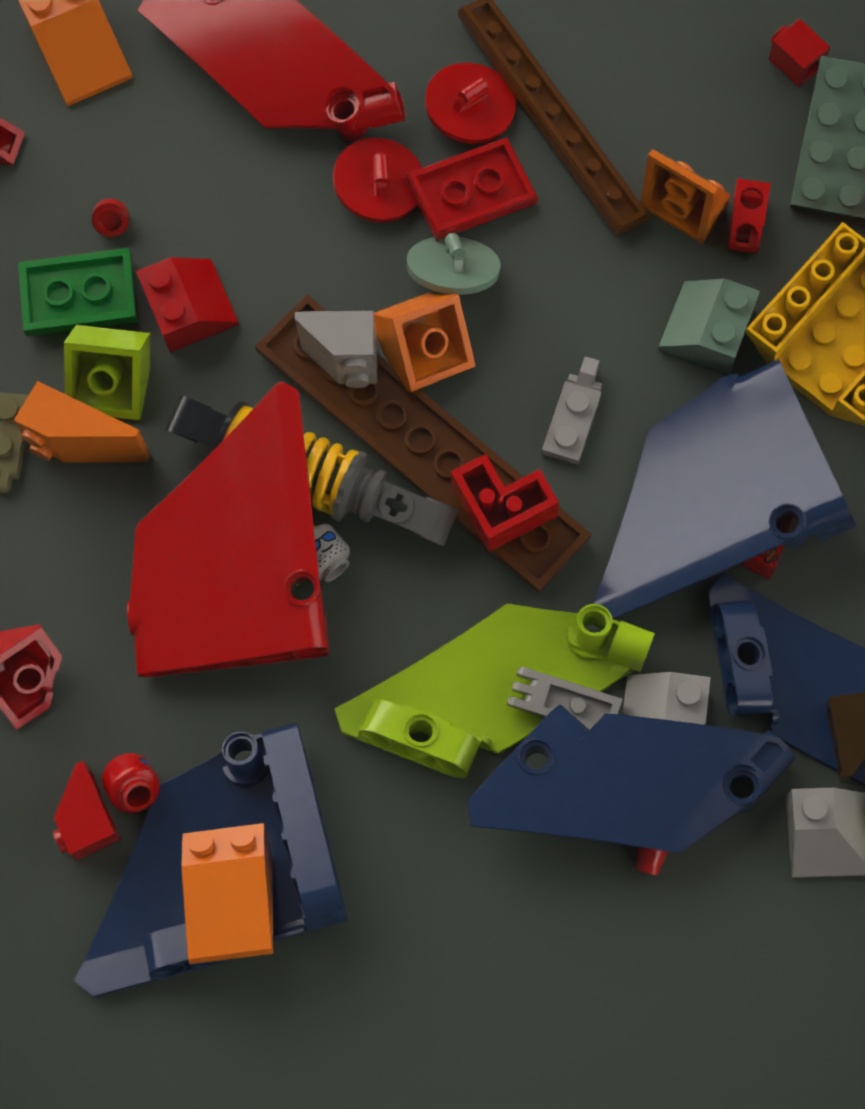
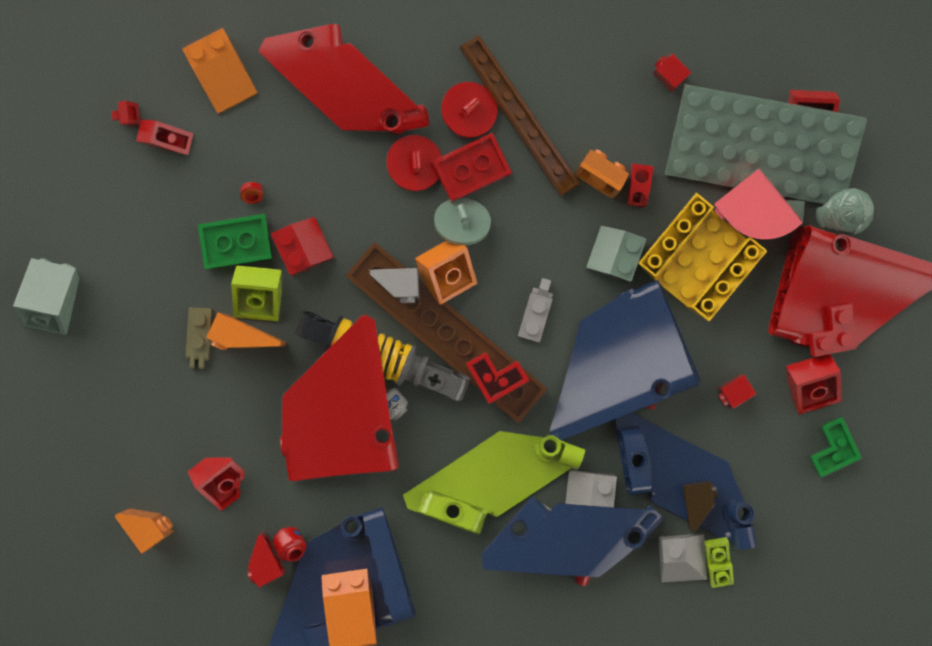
camera: 10 degrees left, 15 degrees up
(549, 692) = (528, 486): light grey hinge -> none

